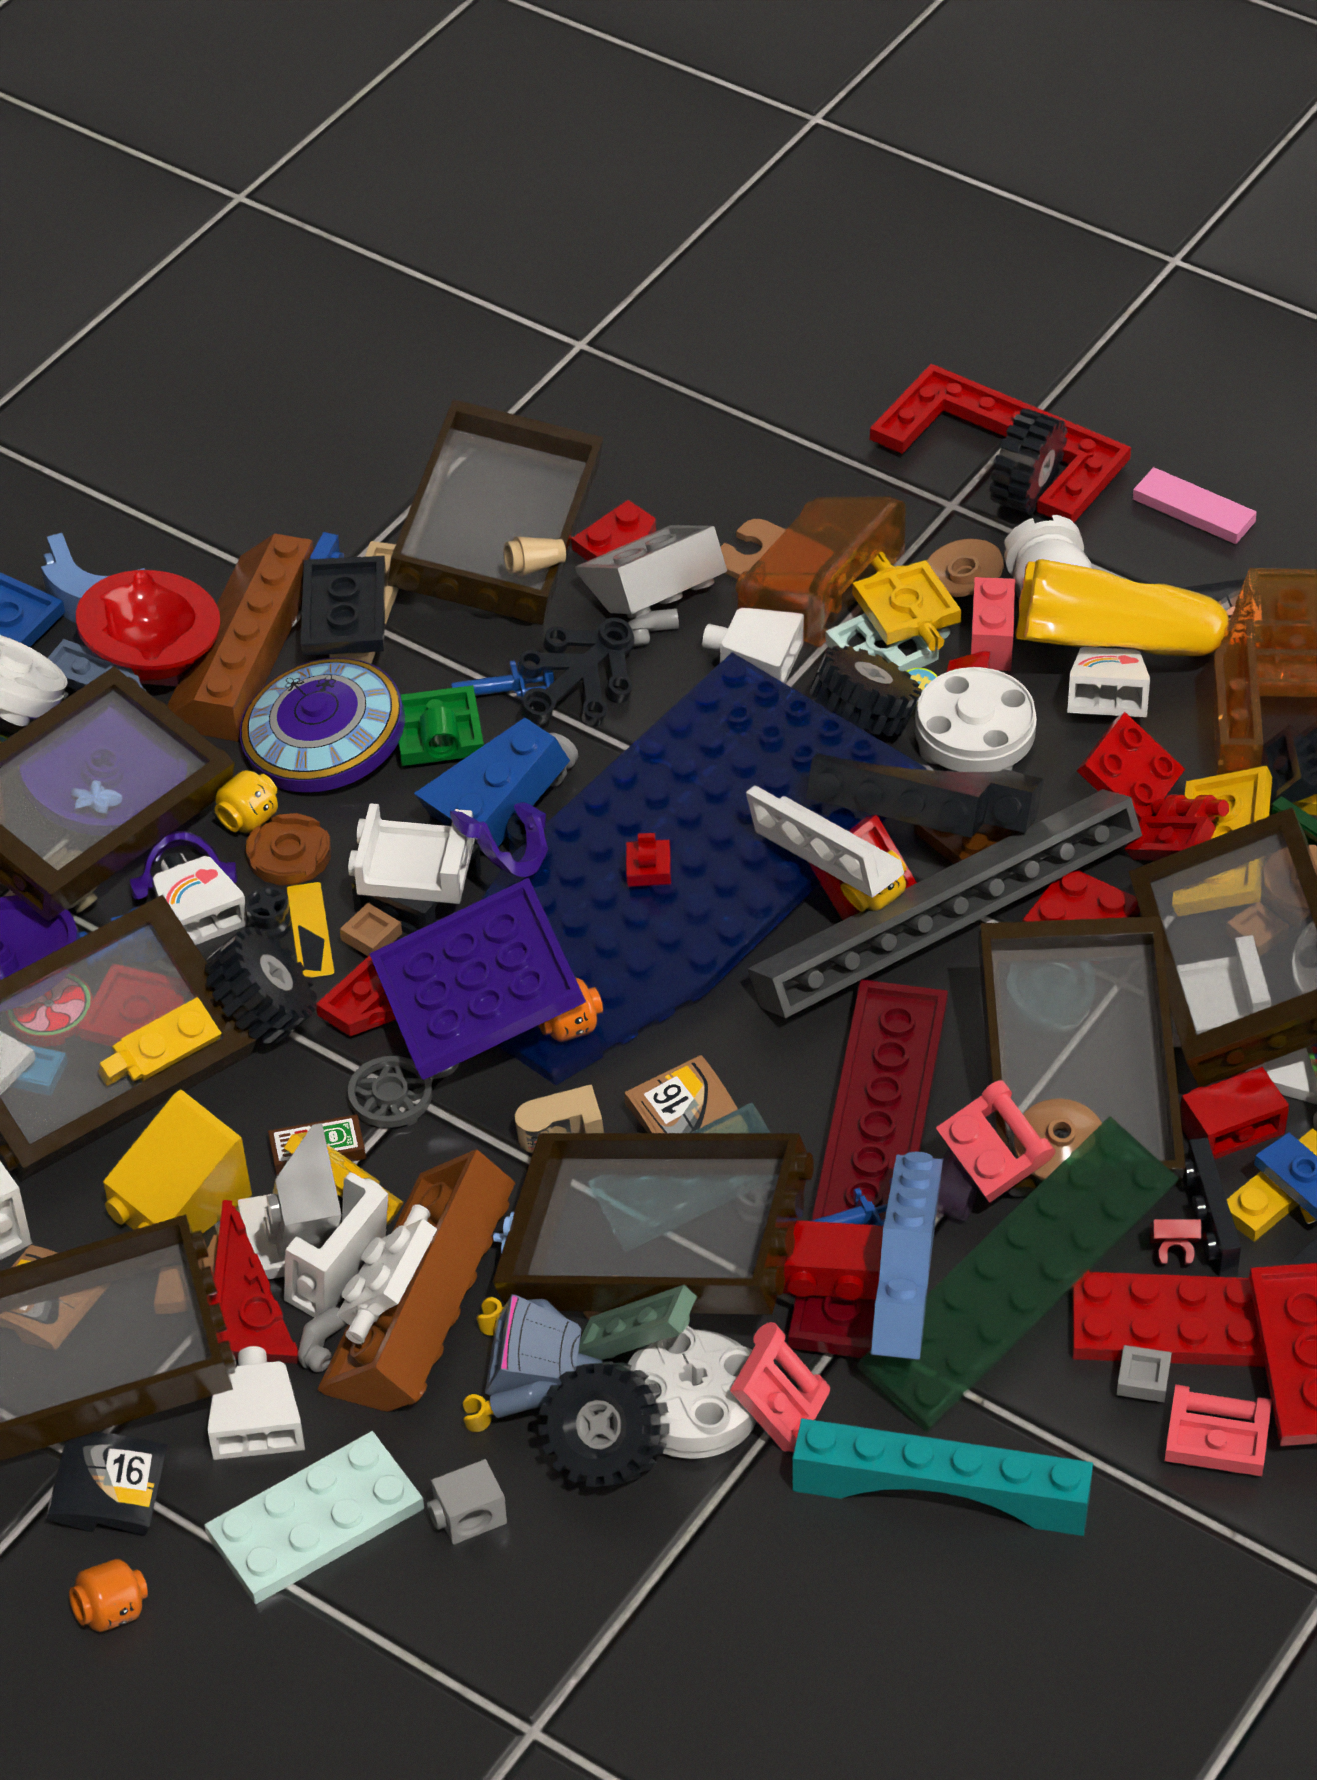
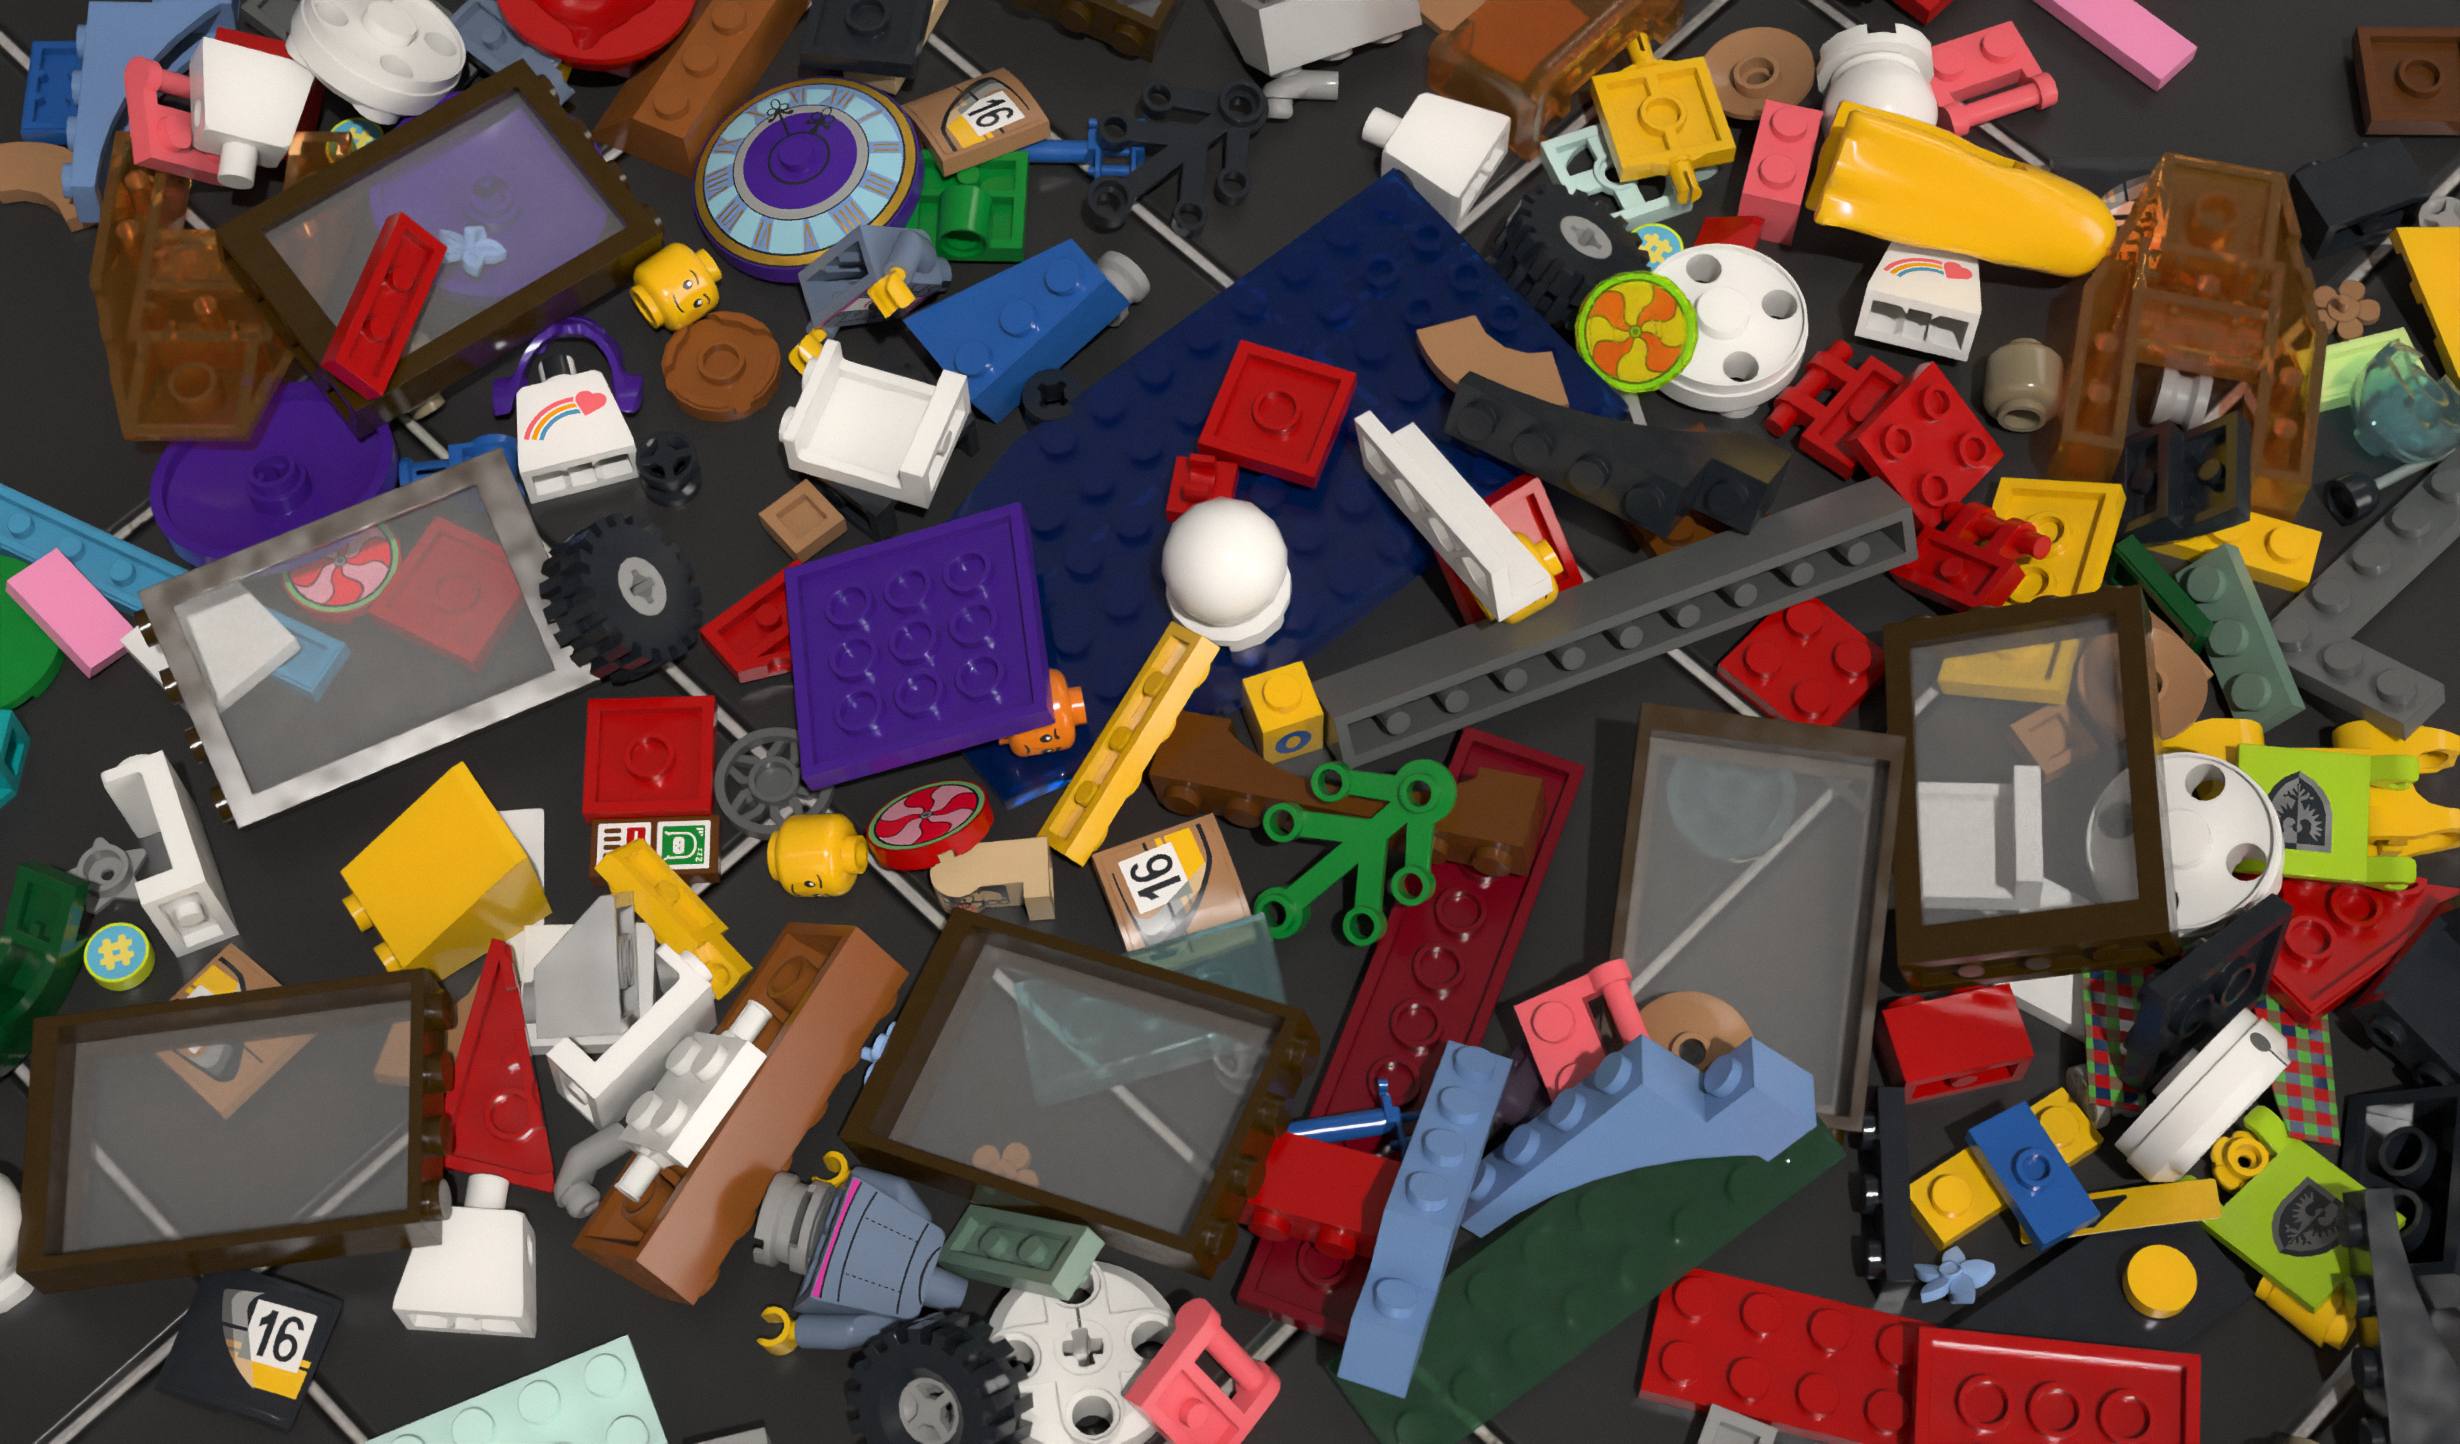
camera: 10 degrees right, 15 degrees up
(59, 823) = (384, 306): none -> red plate
(160, 1043) = (461, 670): yellow hinge -> none
(299, 1086) = (650, 757): none -> red plate
(310, 929) = (725, 500): yellow sticker -> none
(383, 773) = (867, 279): none -> sand blue torso
(432, 1125) = (817, 855): none -> yellow head
(435, 672) = (977, 121): none -> medium nougat slope
(469, 1348) = (791, 1221): none -> light grey wheel
(504, 1092) = (929, 822): none -> tile
(536, 841) = (1052, 440): dark purple helmet -> none
(634, 1017) = (1128, 742): none -> yellow plate
(679, 902) = (1227, 573): none -> white tile
(690, 805) = (1278, 413): none -> red plate
(733, 991) = (1283, 713): none -> yellow brick
(799, 748) = (1464, 346): none -> medium nougat tile
(810, 1047) = (1362, 844): none -> green plant
(880, 1028) = (1212, 772): none -> reddish brown arch
(921, 721) = (1636, 331): none -> clear neon green tile
(1034, 1162) = (1642, 1113): none -> medium blue arch
(1062, 769) = (1830, 425): none -> red plate
(1123, 548) = (1981, 65): none -> coral plate
(1175, 1233) = (1825, 1227): tile -> none
(1188, 724) = (2023, 385): none -> dark tan head
(1268, 1249) = (1954, 1277): none -> light blue plant
(1297, 714) = (2180, 399): none -> light grey wheel

